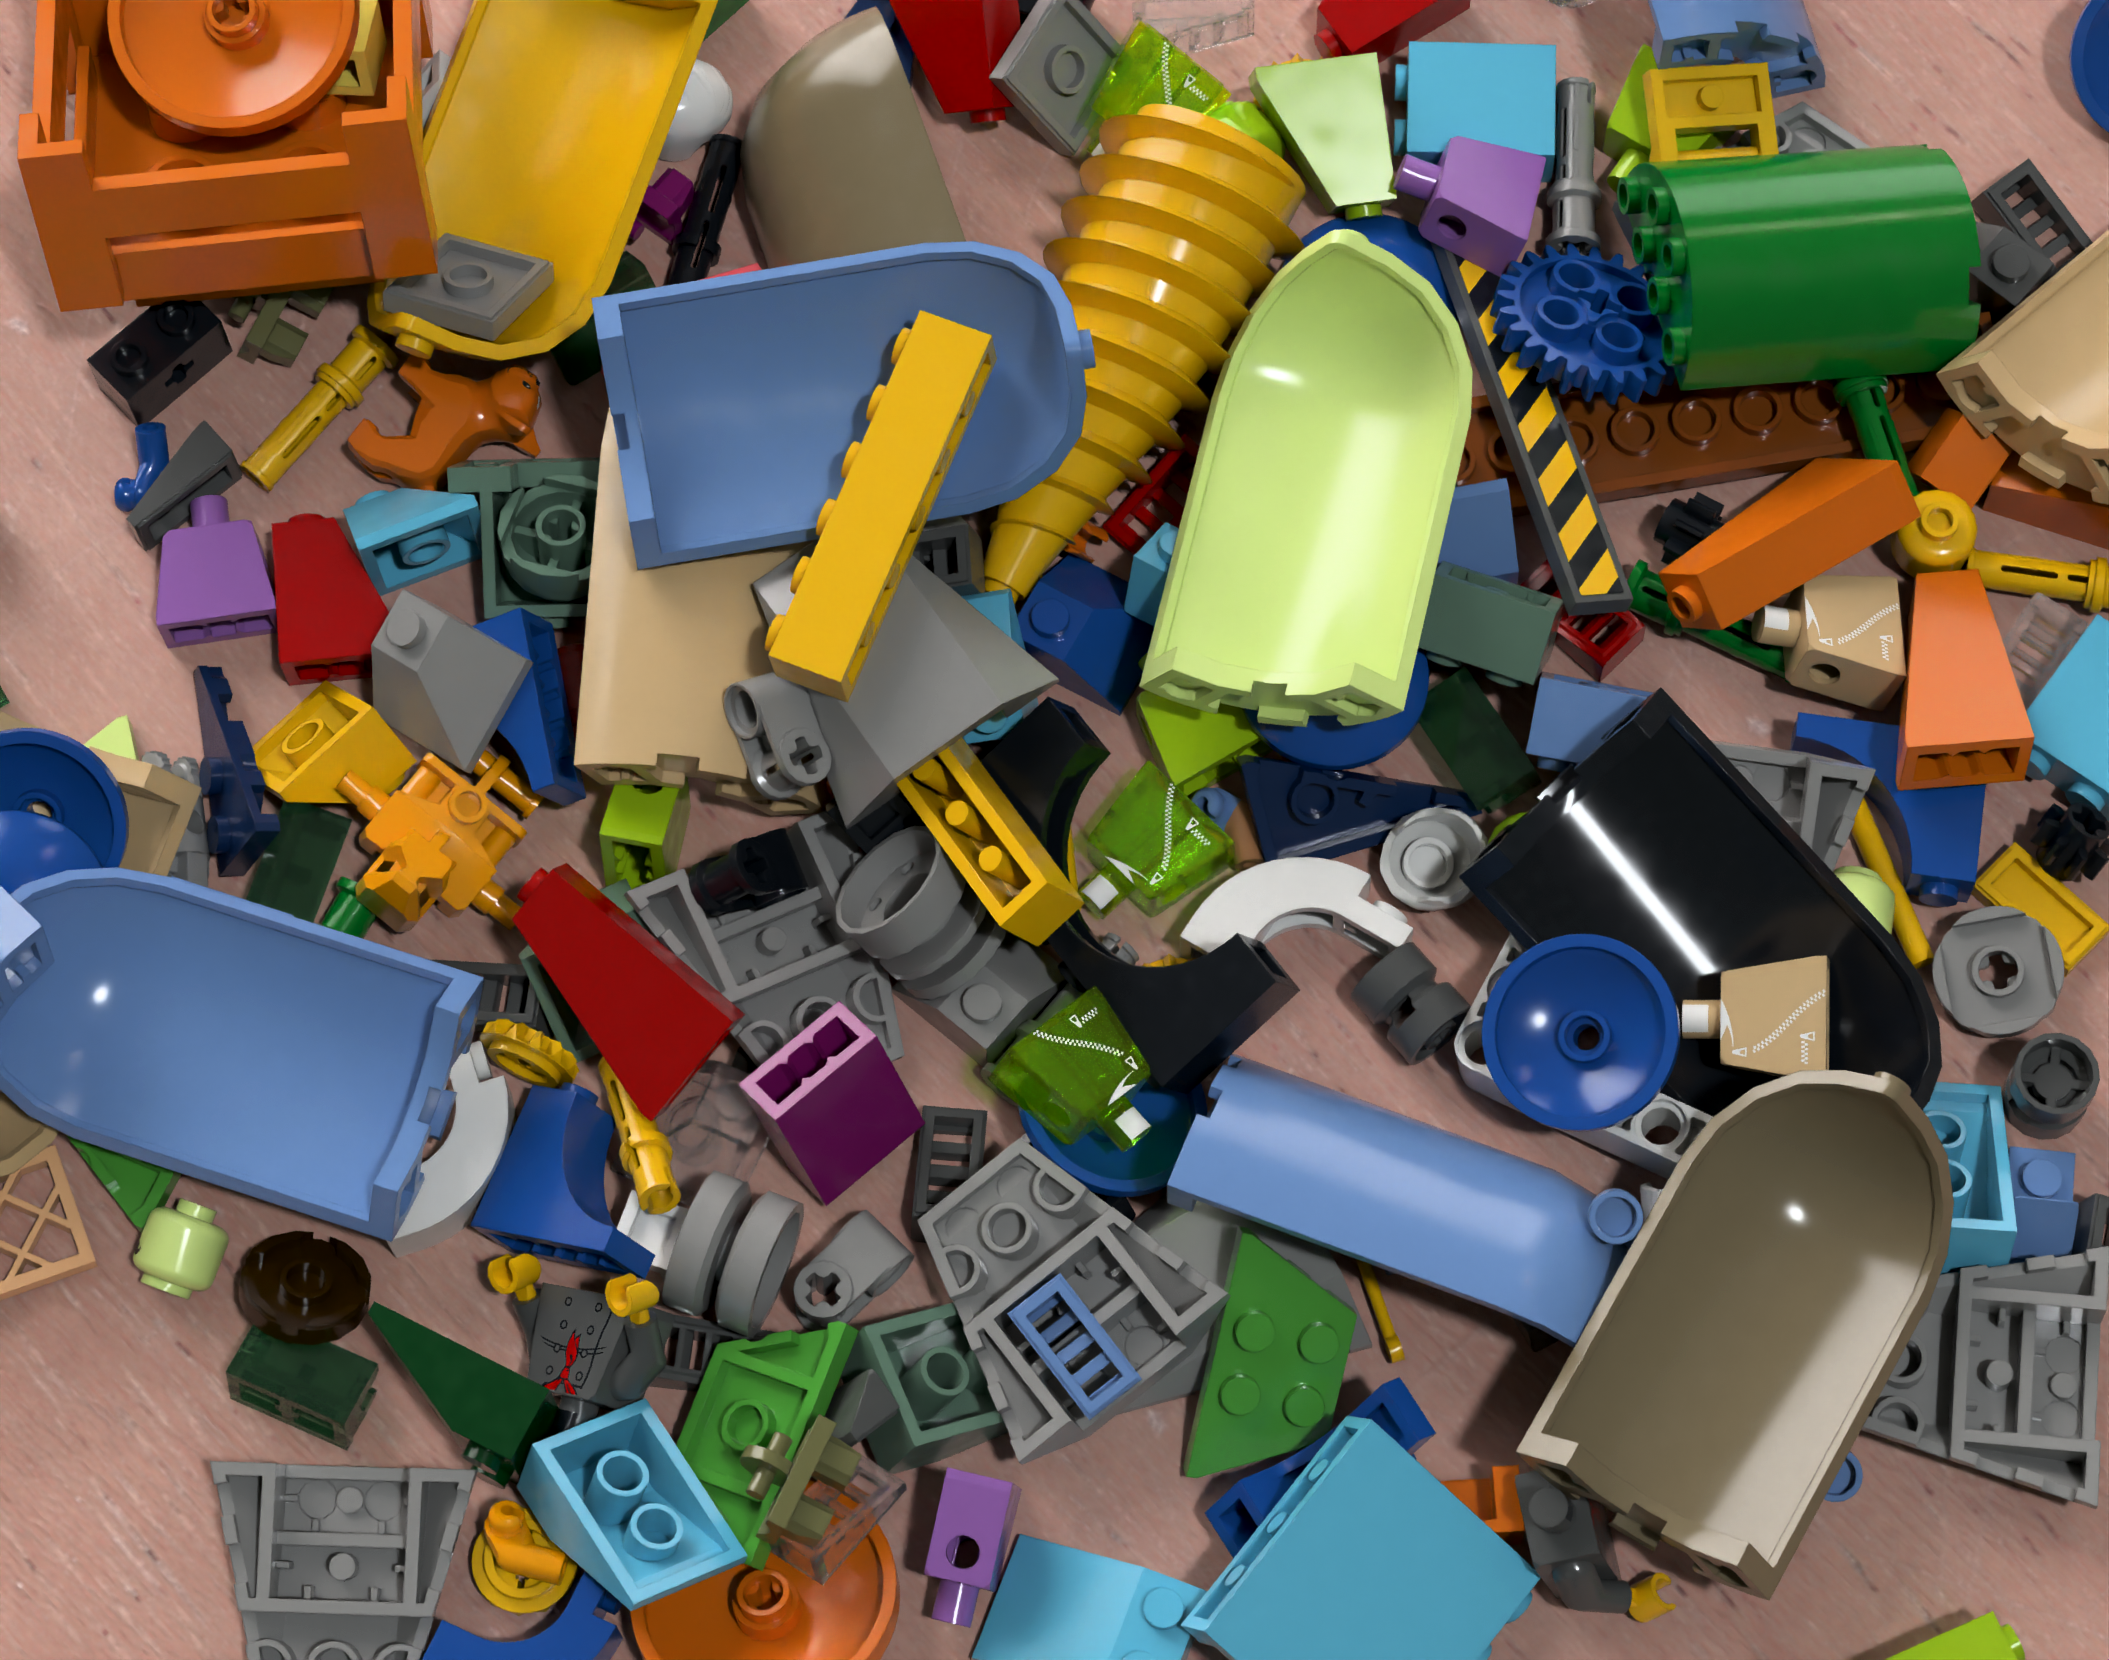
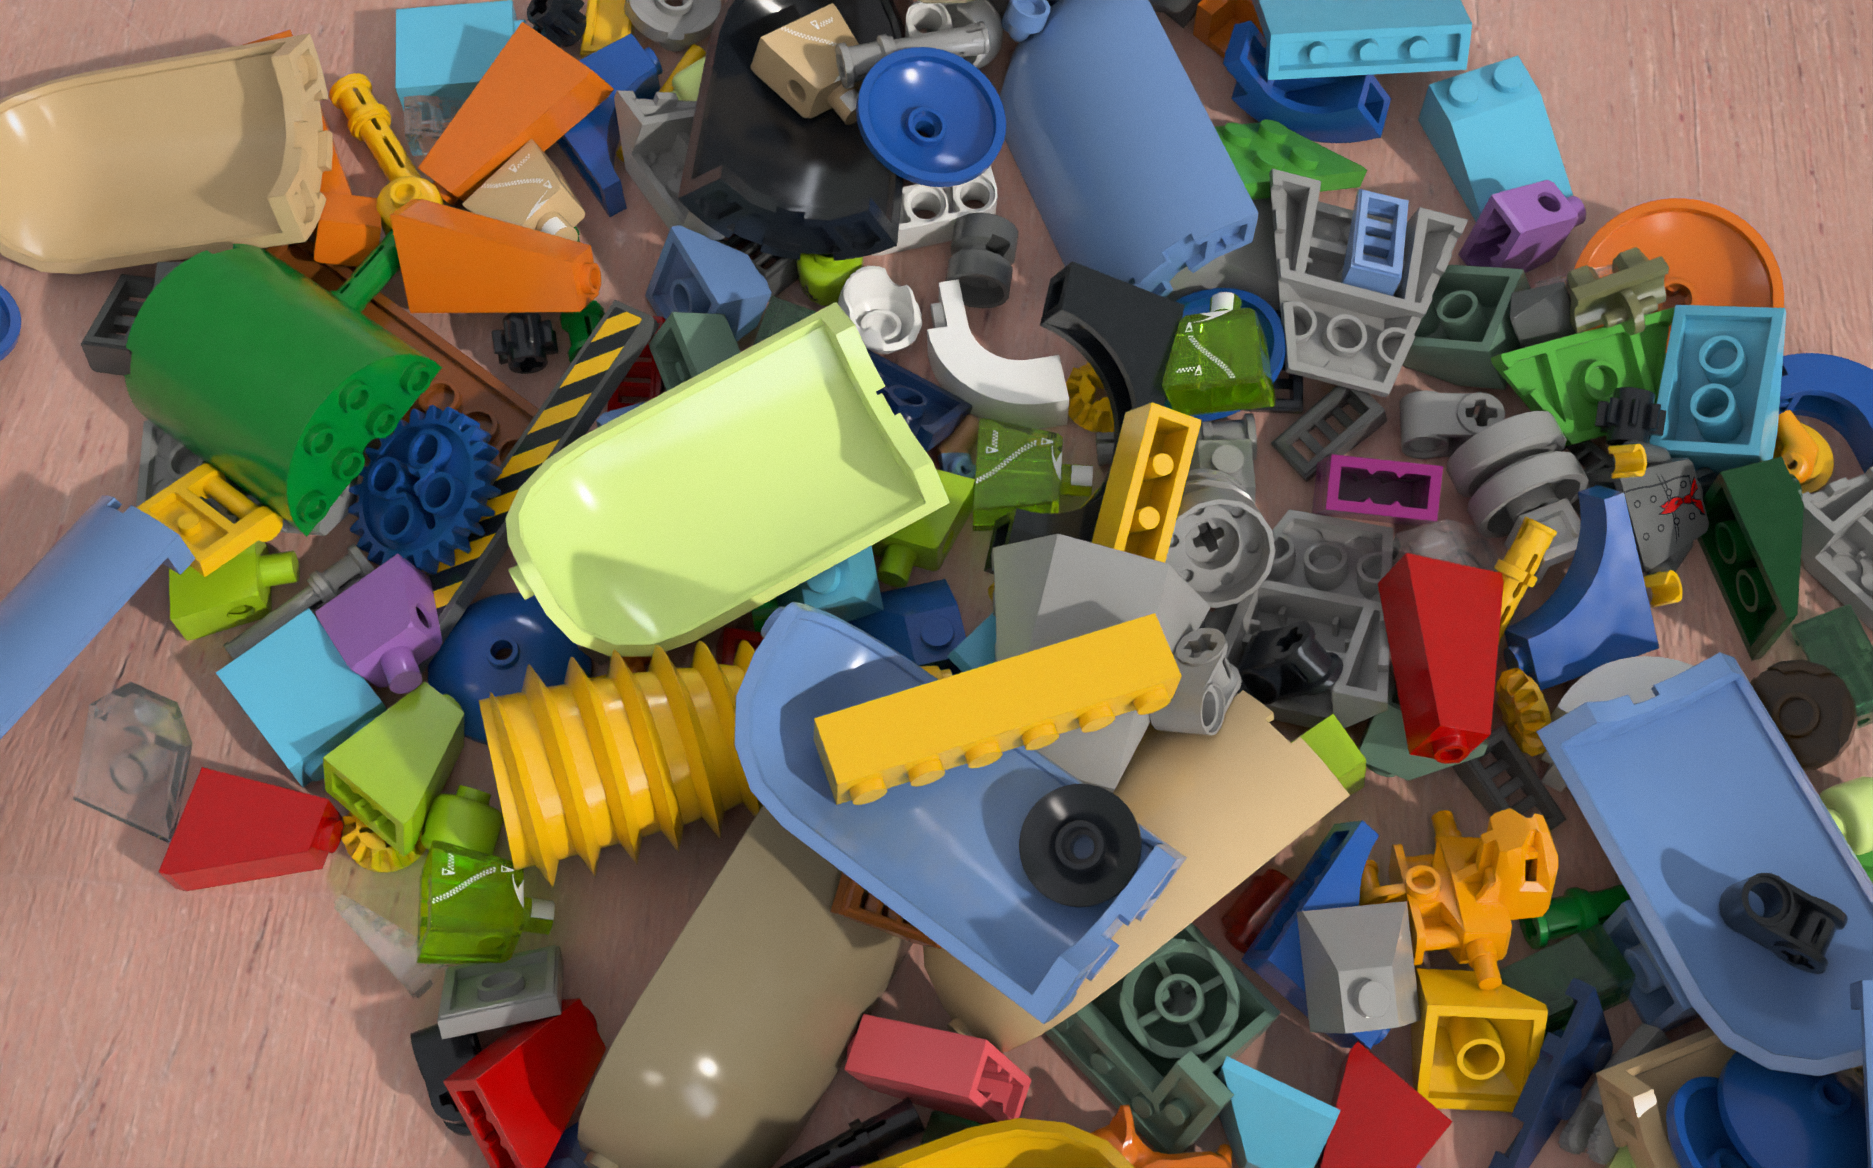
camera: 135 degrees left, 5 degrees down
(147, 1044) = (1793, 922): none -> black piece
(683, 1397) = (1630, 416): none -> black gear
(716, 480) = (1050, 837): none -> black dish
(1697, 1060) = (857, 60): none -> light grey pin

